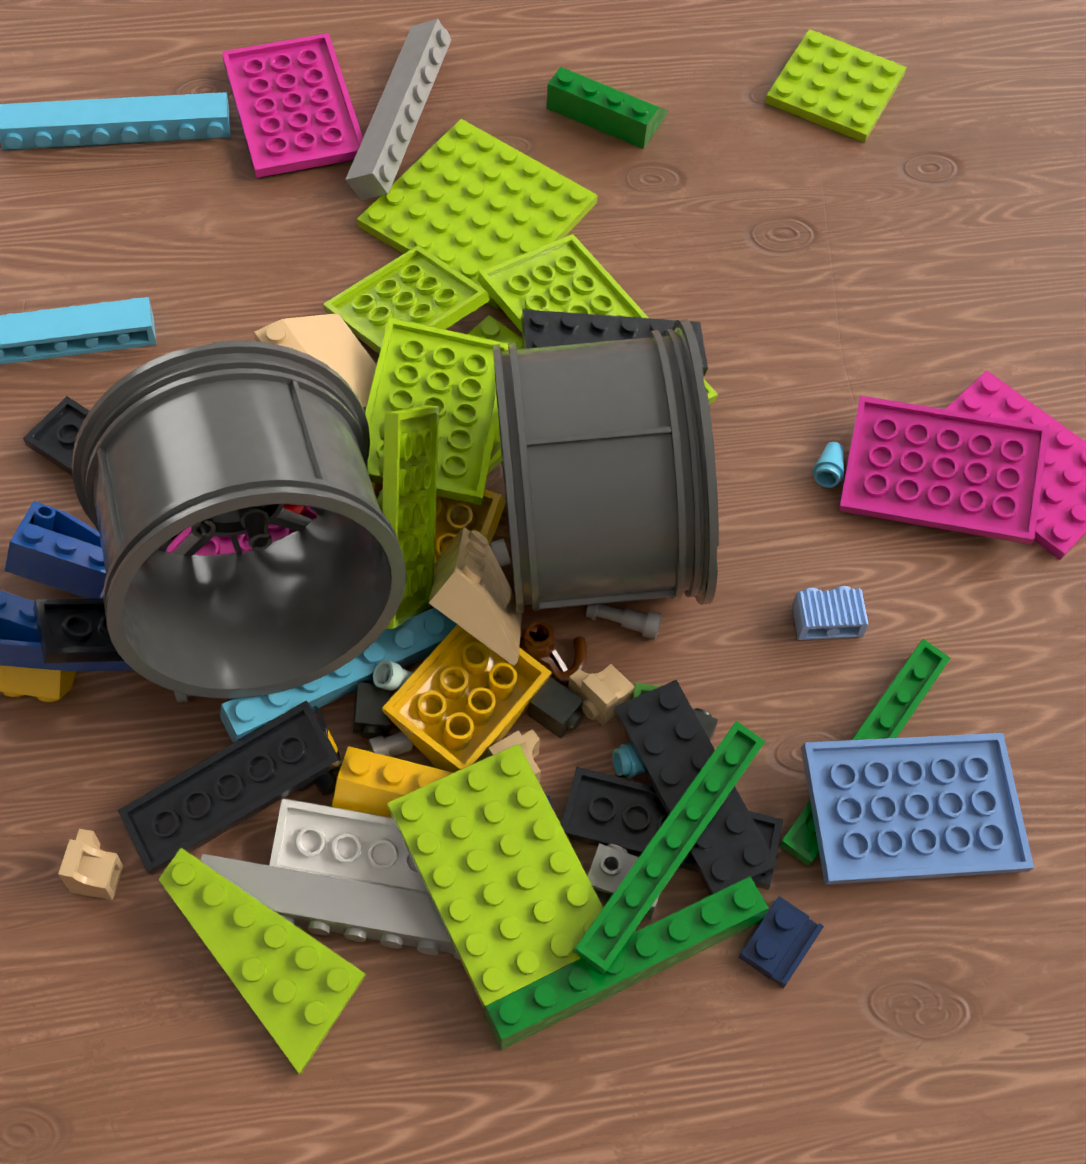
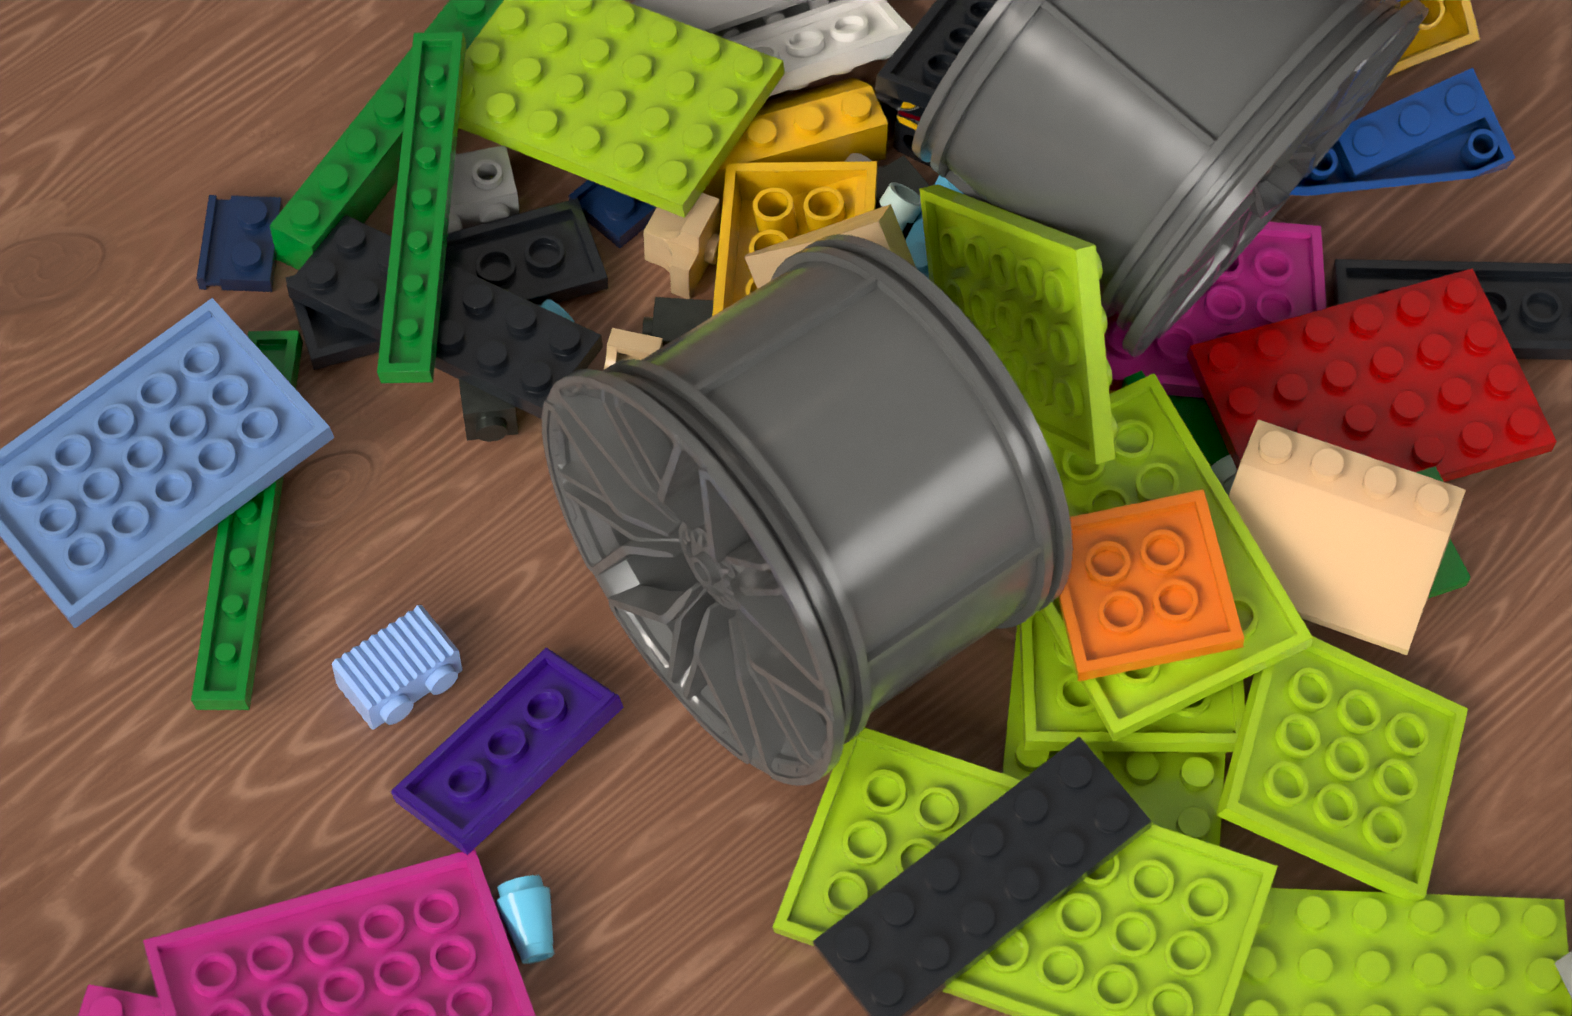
camera: 150 degrees right, 0 degrees up
(447, 374) = (1147, 587): none -> orange plate
(795, 543) = (506, 750): none -> dark purple tile

